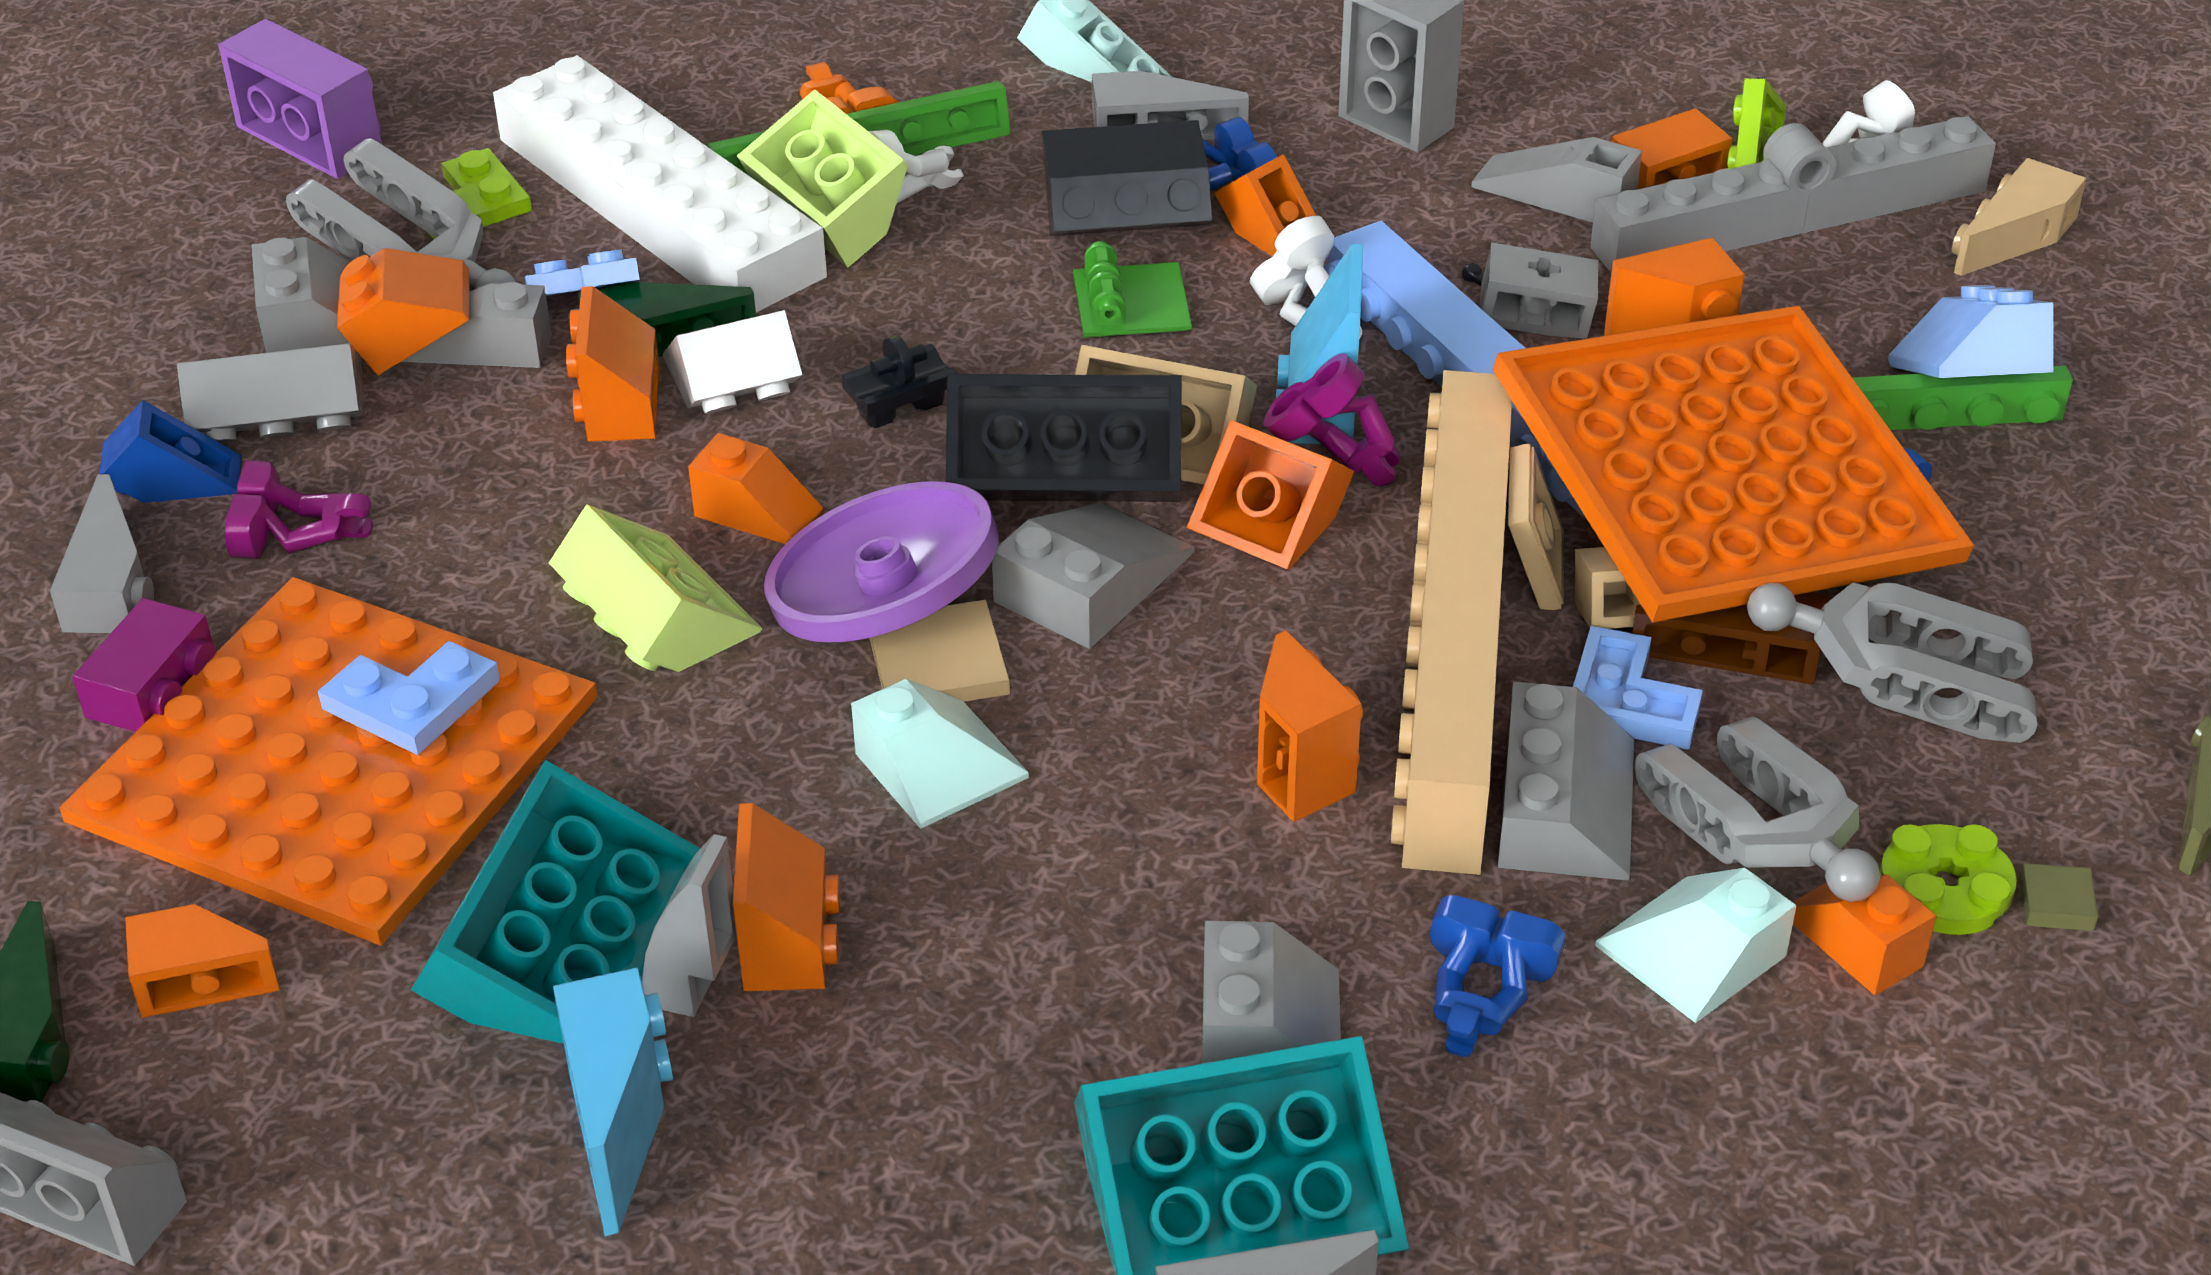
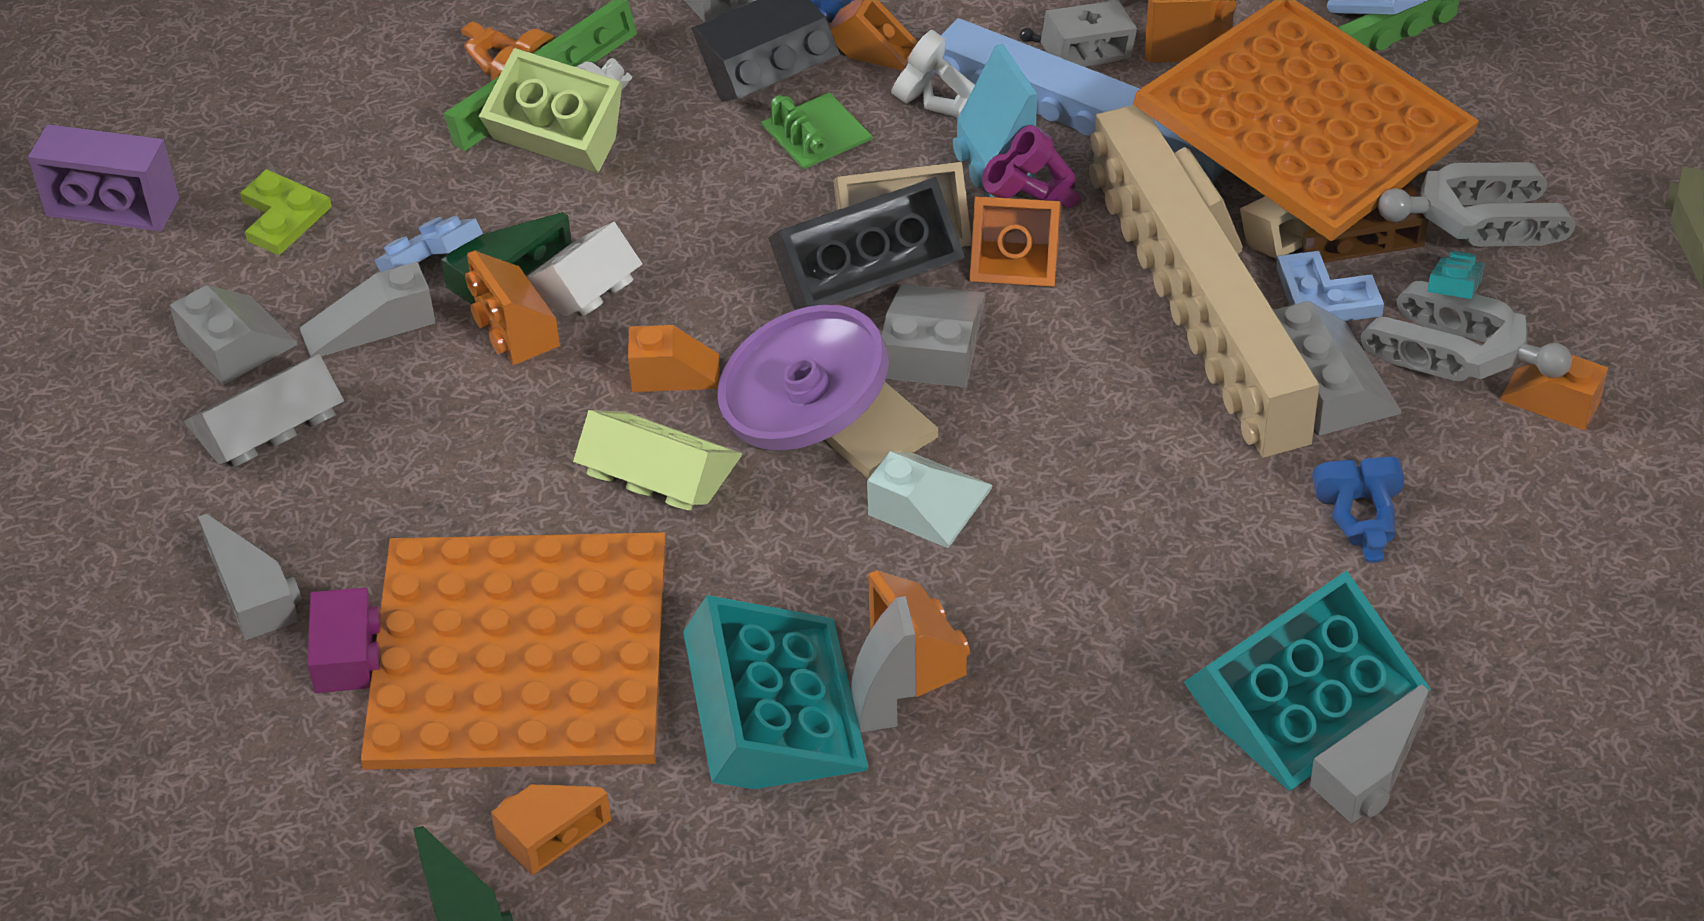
camera: 25 degrees left, 5 degrees up
(166, 459) = (226, 487): blue slope -> none
(255, 508) = (330, 507): magenta piece -> none
(400, 304) = (320, 309): orange slope -> none
(407, 192) = (252, 273): light grey piece -> none
(410, 708) = (556, 599): light blue plate -> none
(614, 1079) = (900, 787): medium azure slope -> none
(659, 183) = (420, 154): white brick -> none
(897, 379) = (711, 245): black hips -> none
(1264, 991) = (1246, 575): light grey slope -> none
(1306, 732) = (1160, 390): orange slope -> none
(1704, 939) = (1471, 431): light aqua slope -> none
(1806, 726) = (1456, 275): none -> teal plate
(1971, 853) = (1589, 322): lime plate -> none
(2058, 896) = (1649, 329): olive tile -> none

